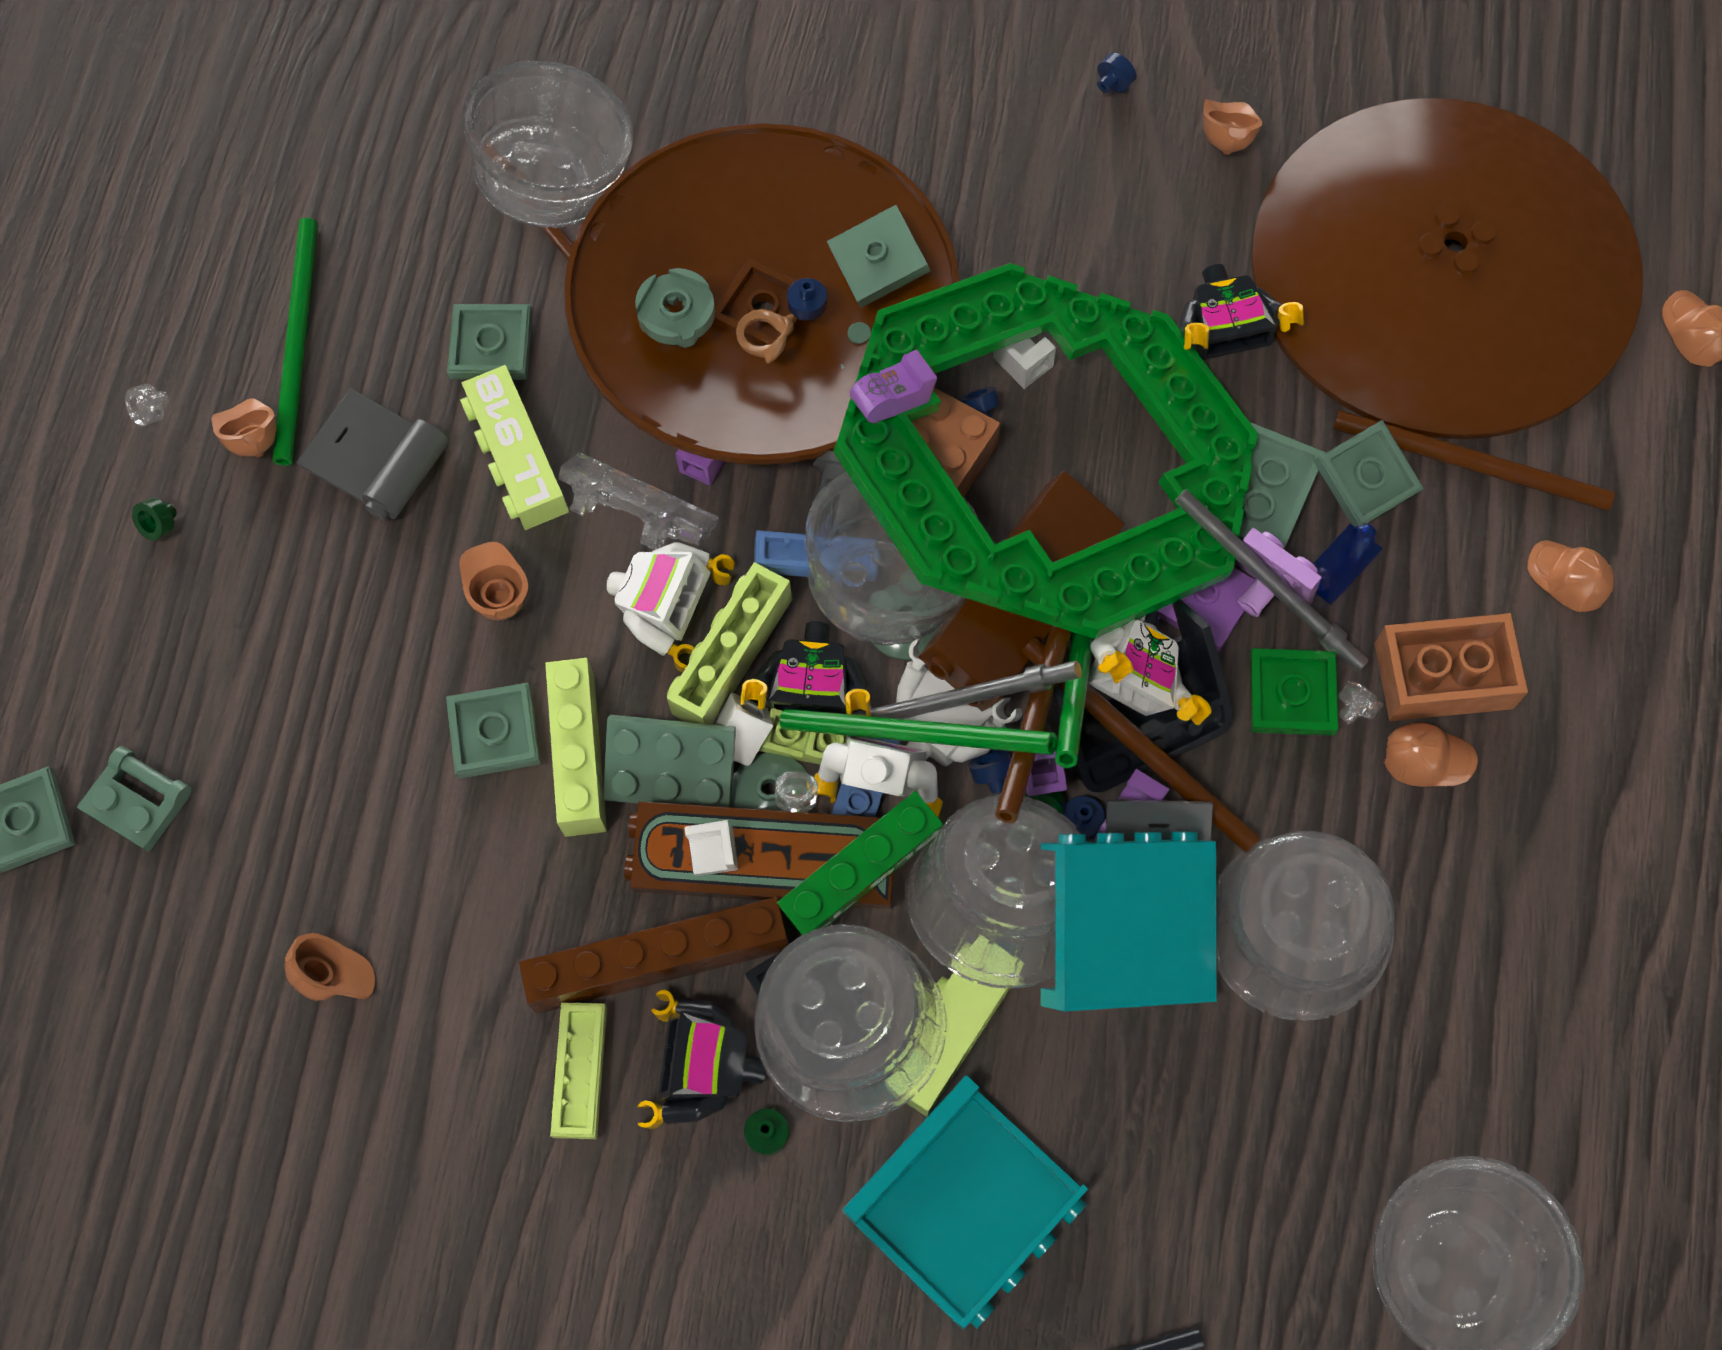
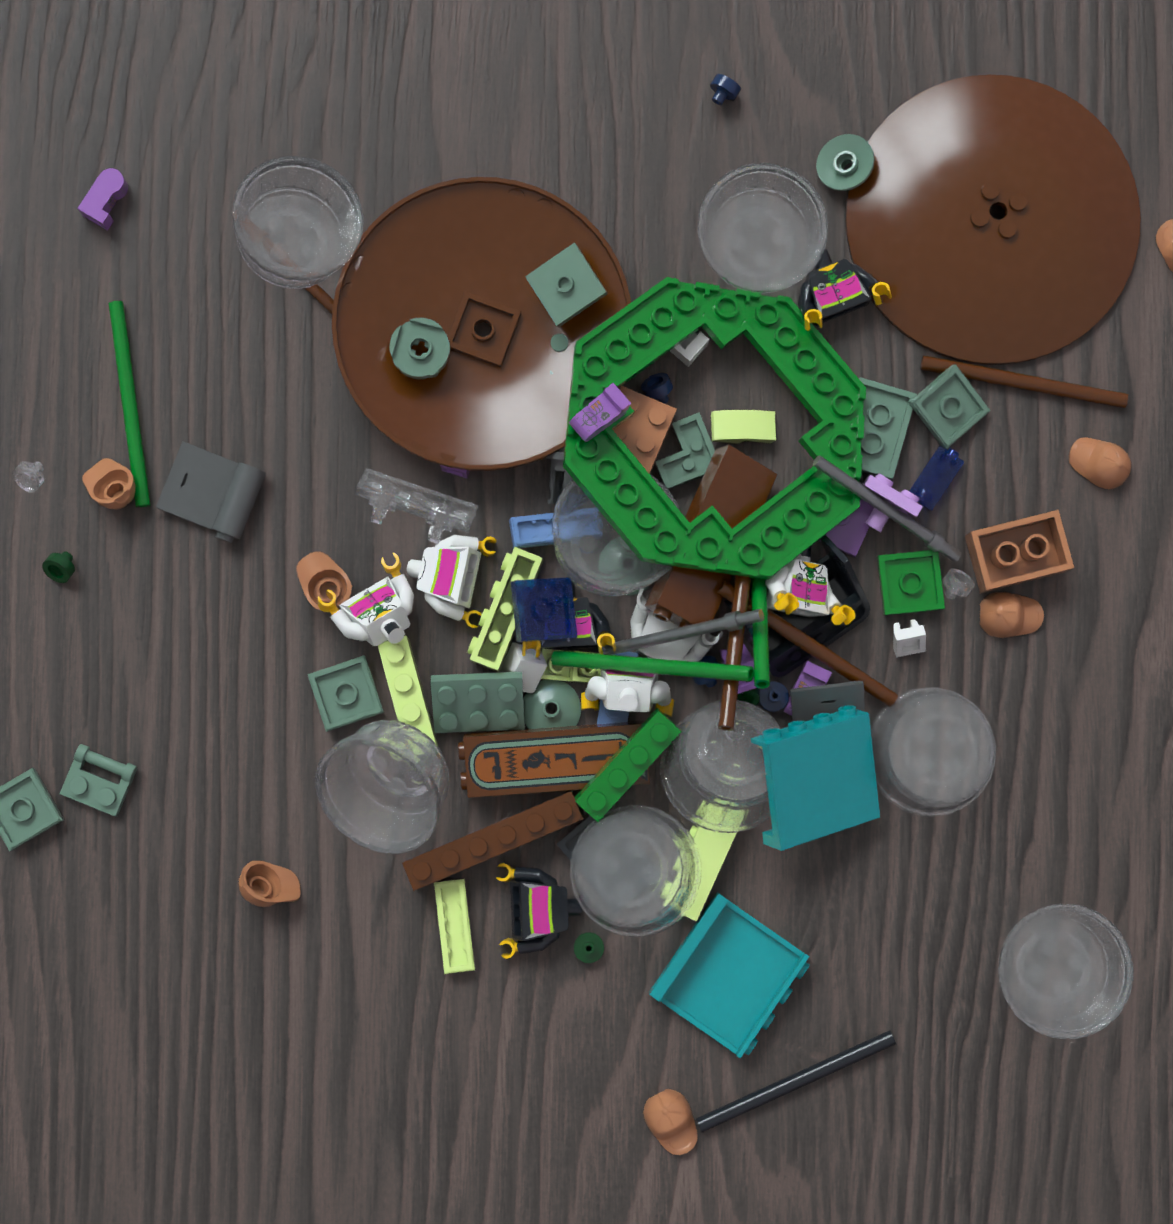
camera: 15 degrees left, 15 degrees up
(322, 103) = (102, 197): none -> medium lavender leg
(489, 338) = (279, 386): sand green plate -> none
(511, 844) = (384, 786): none -> clear piece
(515, 448) = (316, 471): yellowish green brick -> none
(553, 624) = (377, 611): none -> white torso
(712, 848) = (522, 765): white panel -> none
(778, 644) = (543, 609): none -> clear blue plate
(780, 323) = (502, 350): medium nougat piece -> none
(796, 792) = (571, 711): clear tile -> none
(807, 299) = (520, 332): dark blue tile -> none
(1017, 486) = (695, 453): none -> sand green plate
(1088, 462) = (743, 425): none -> yellowish green slope
(1142, 220) = (762, 227): none -> clear piece
(1230, 125) = (818, 122): nougat piece -> none
(1260, 170) = (840, 152): none -> sand green dish
(1283, 766) = (909, 640): none -> white tile

